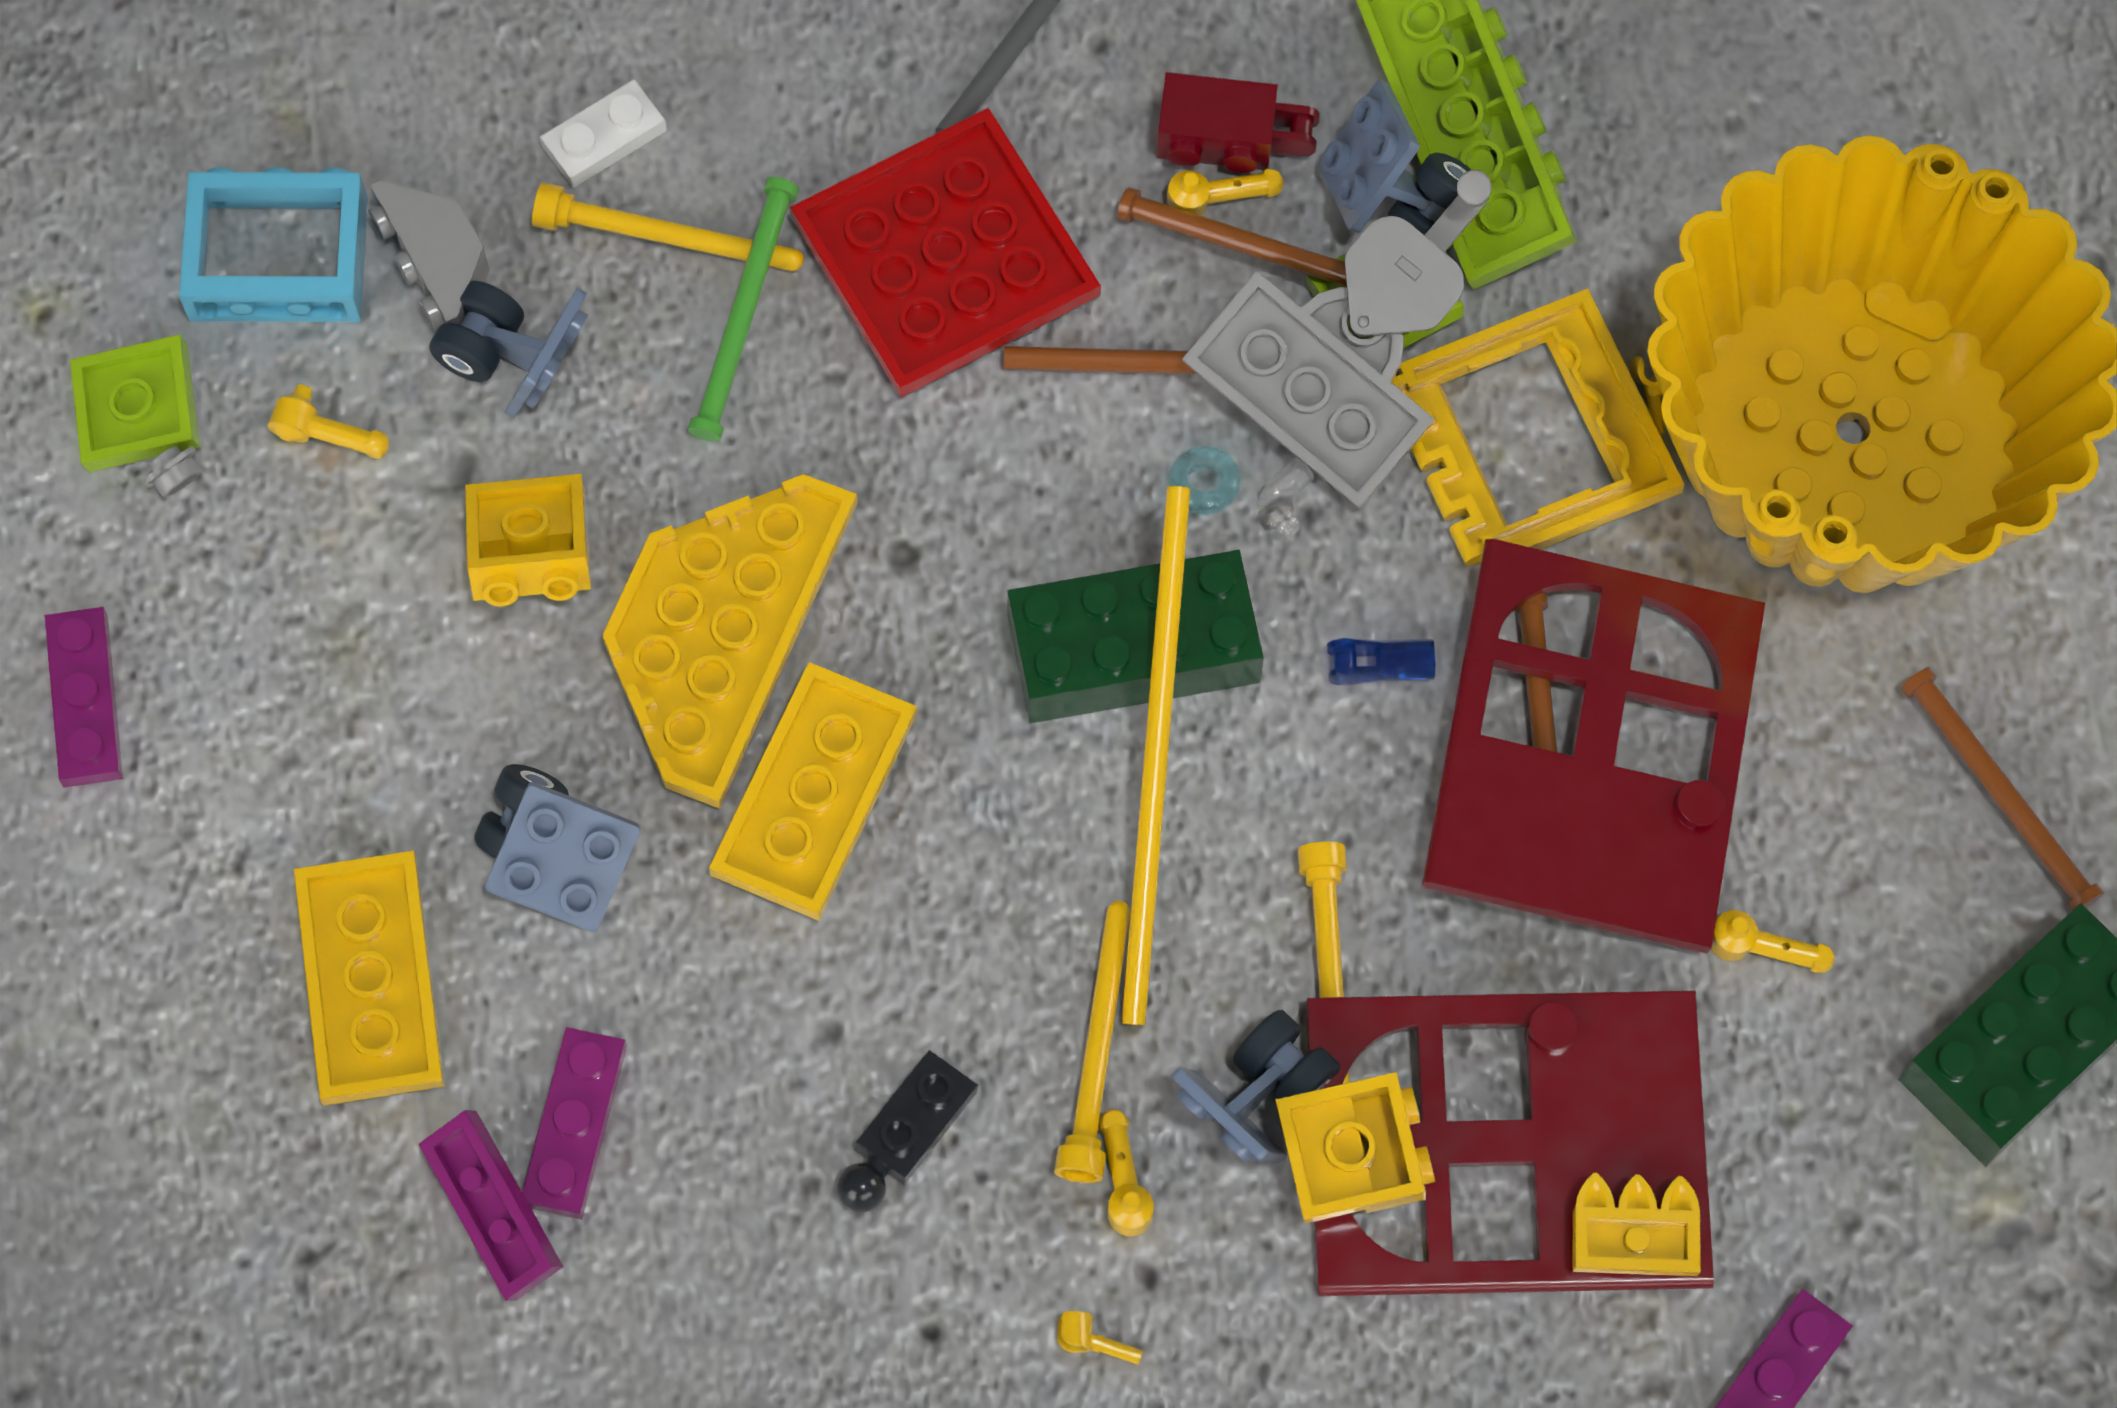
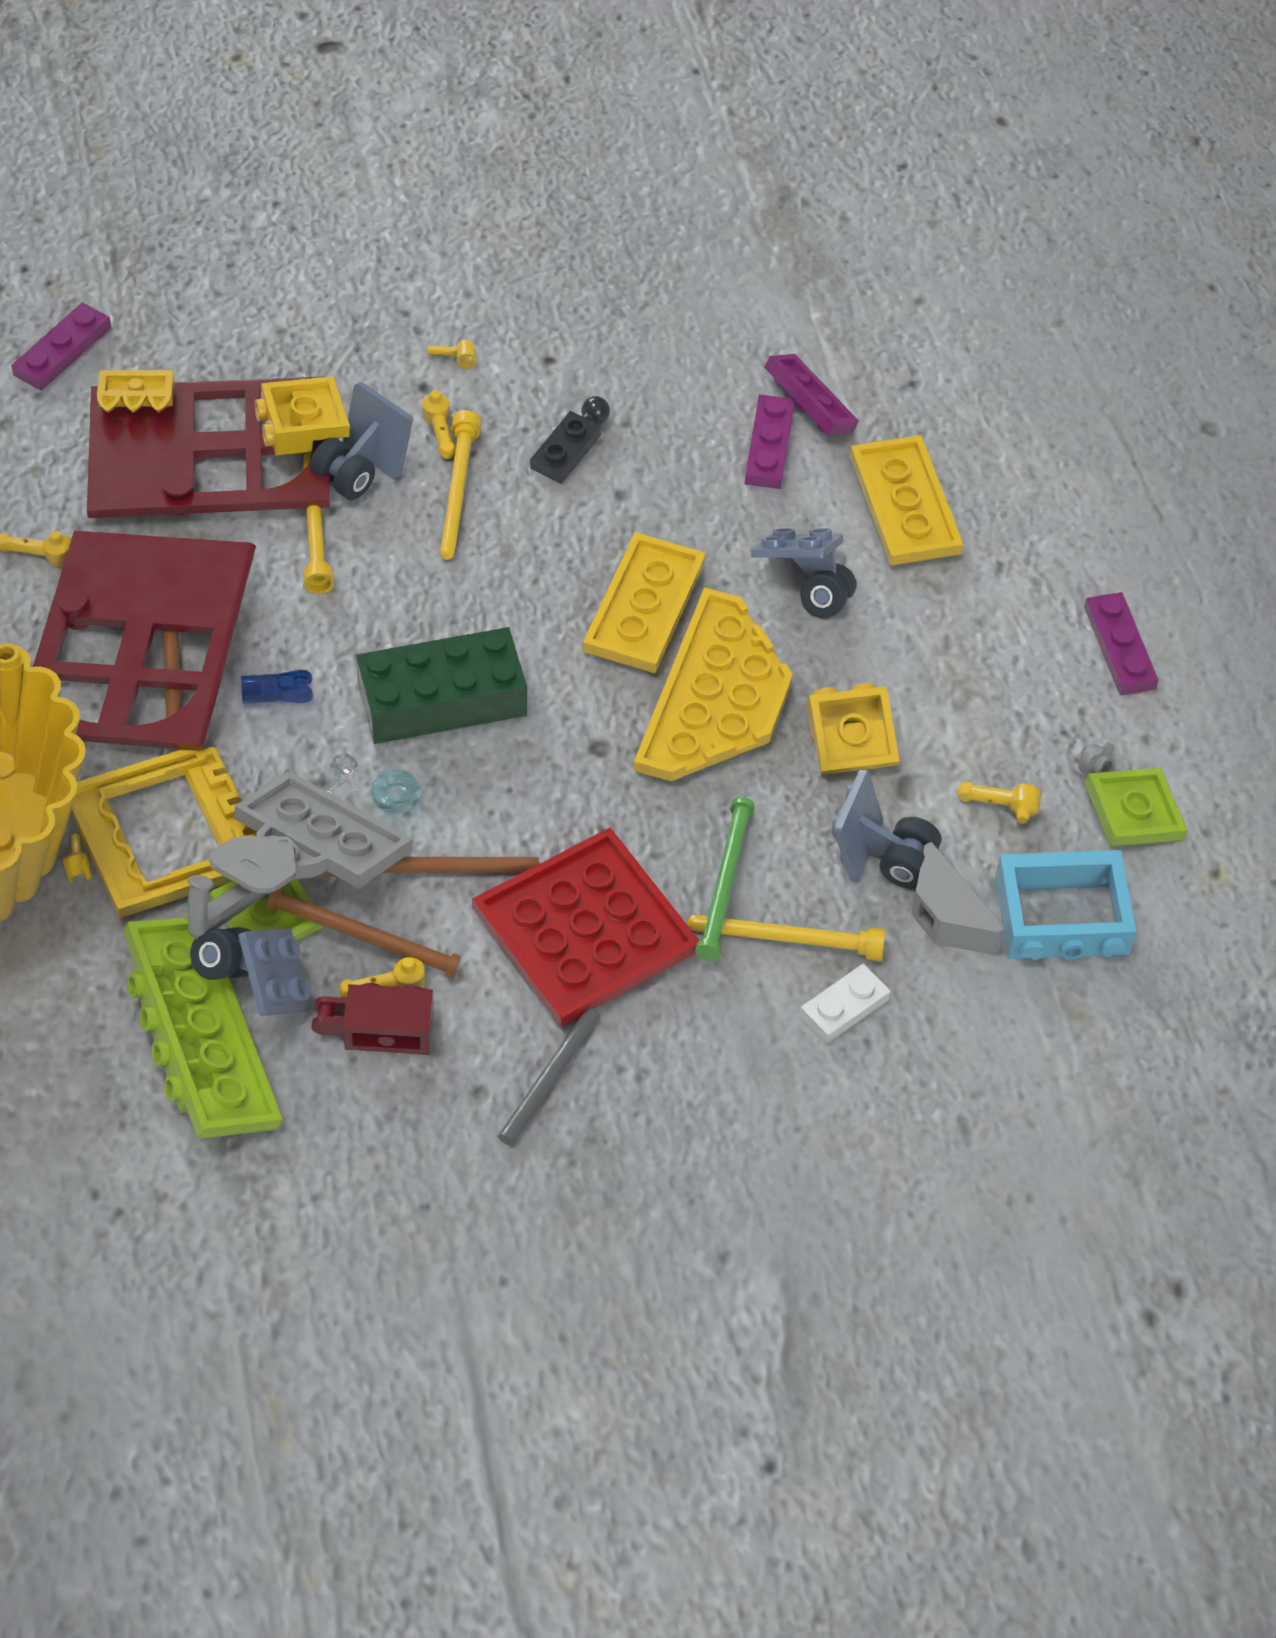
camera: 175 degrees right, 15 degrees down
(1156, 756) = (425, 605): yellow piece -> none

